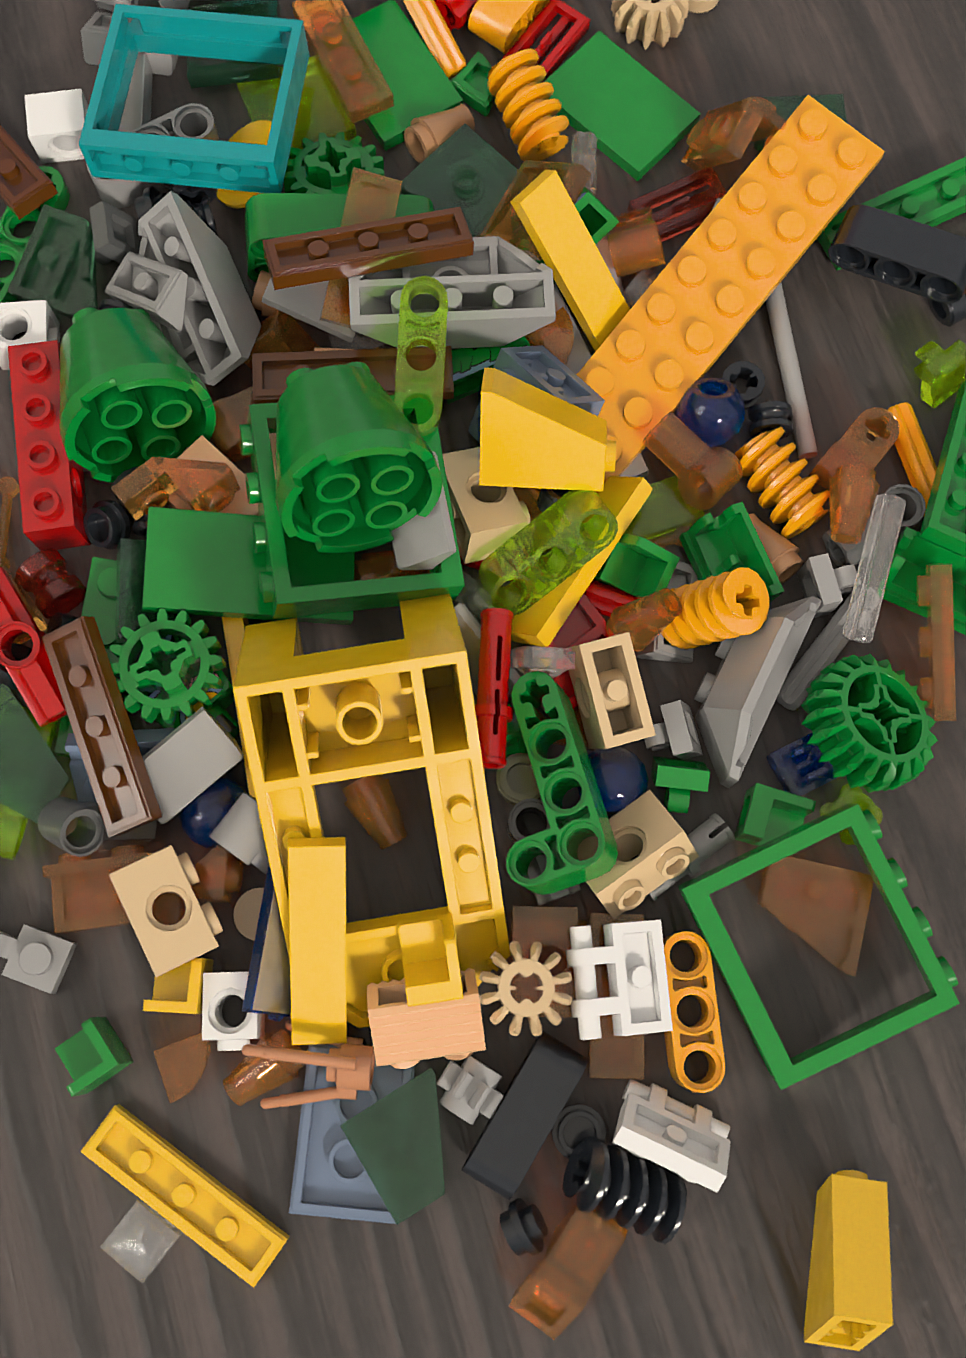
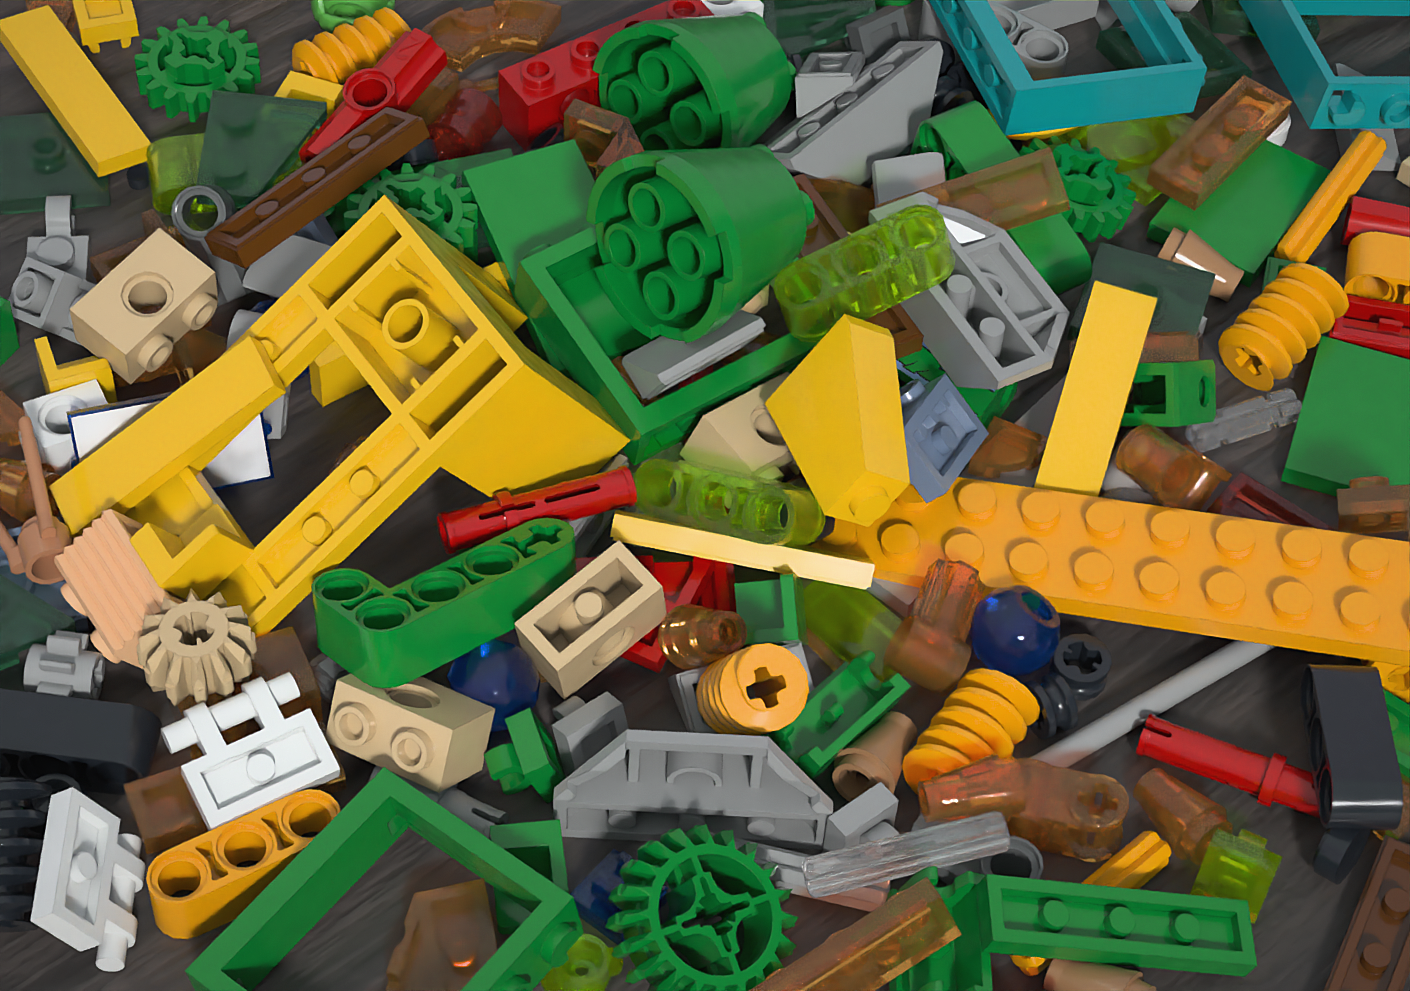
camera: 65 degrees right, 25 degrees down
(92, 968) = (45, 296): none -> light grey slope
(367, 248) = (970, 197): reddish brown tile -> none
(543, 659) = (590, 530): clear tile -> none
(877, 316) = (1229, 764): none -> red pin
(886, 382) = (1181, 814): none -> clear orange cone

